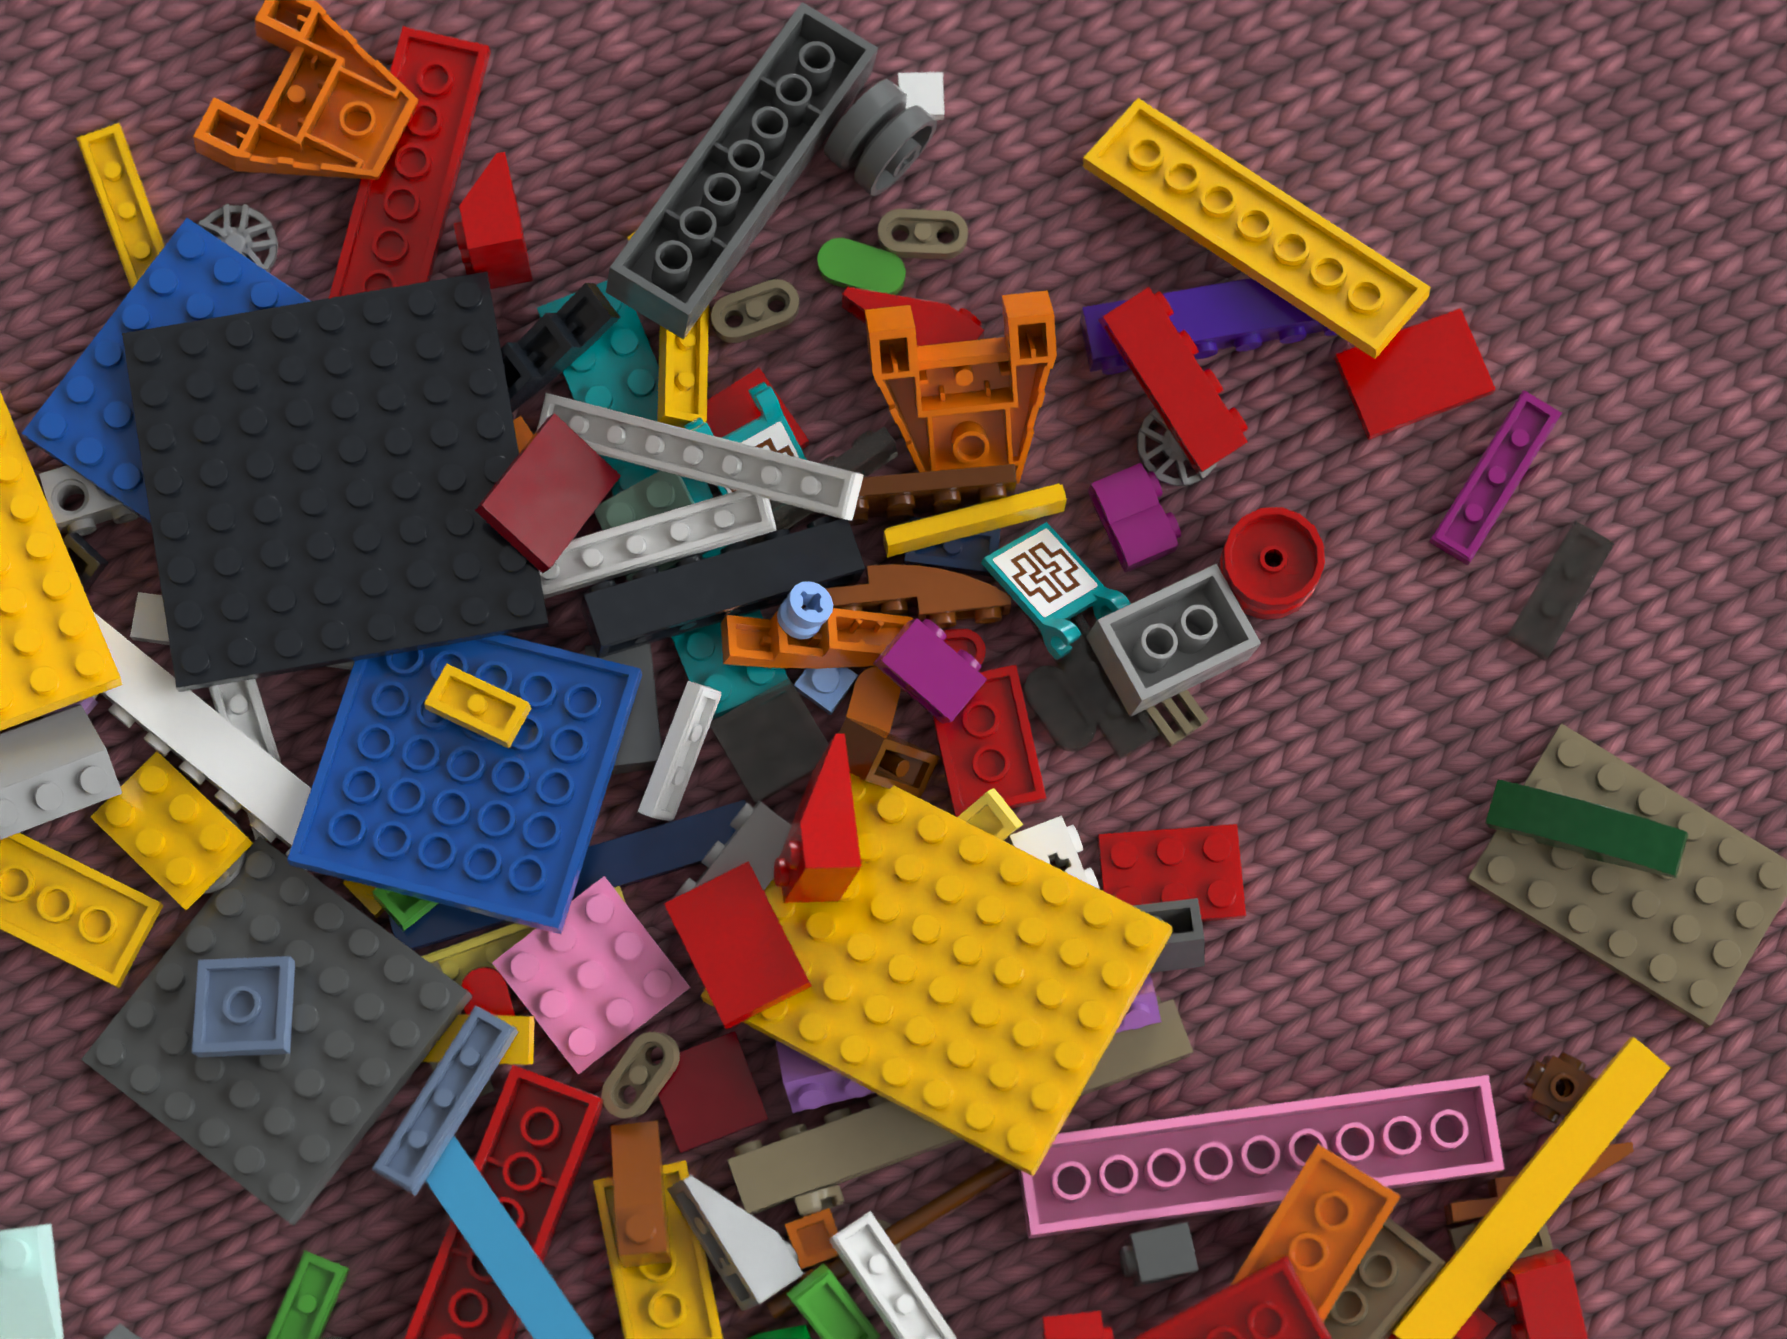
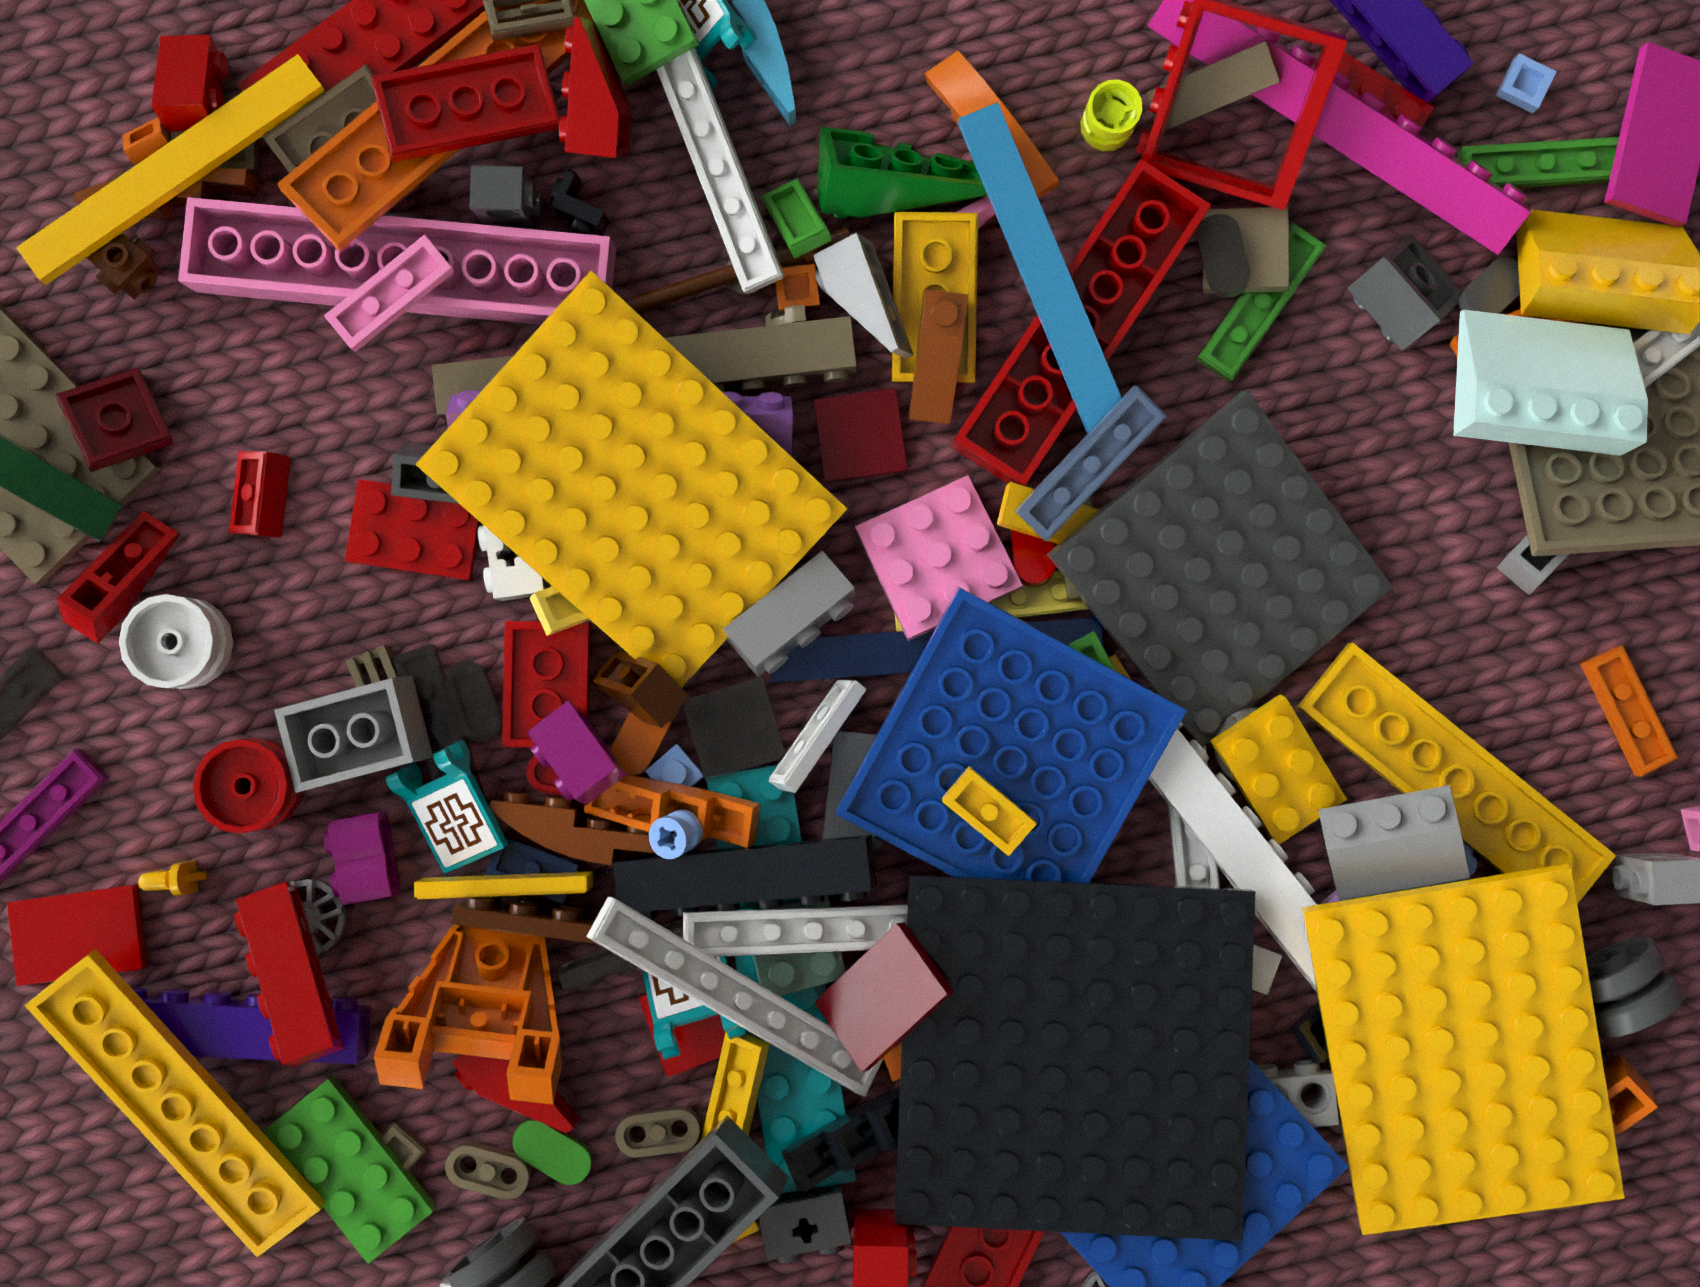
camera: 165 degrees left, 10 degrees up
(243, 1006) = (1249, 589): sand blue plate -> none
(561, 268) = (824, 1210): none -> dark grey brick
(641, 1073) = (912, 458): dark tan plate -> none
(737, 945) = (804, 542): red tile -> none
(823, 842) = (706, 616): red slope -> none
(1023, 232) = (404, 1144): none -> dark tan tile
(1065, 205) = (351, 1169): none -> bright green plate
(1074, 1262) = (580, 216): none -> black bracket
(1251, 1110) = (389, 293): none -> bright pink plate
(1340, 445) = (180, 879): none -> yellow piece
(1350, 876) = (259, 494): none -> red slope
(1409, 675) = (151, 645): none -> white wheel
(1473, 751) = (116, 577): none -> red slope
(1524, 916) = (114, 419): none -> dark red tile
(1578, 1234) = (144, 140): none -> orange plate

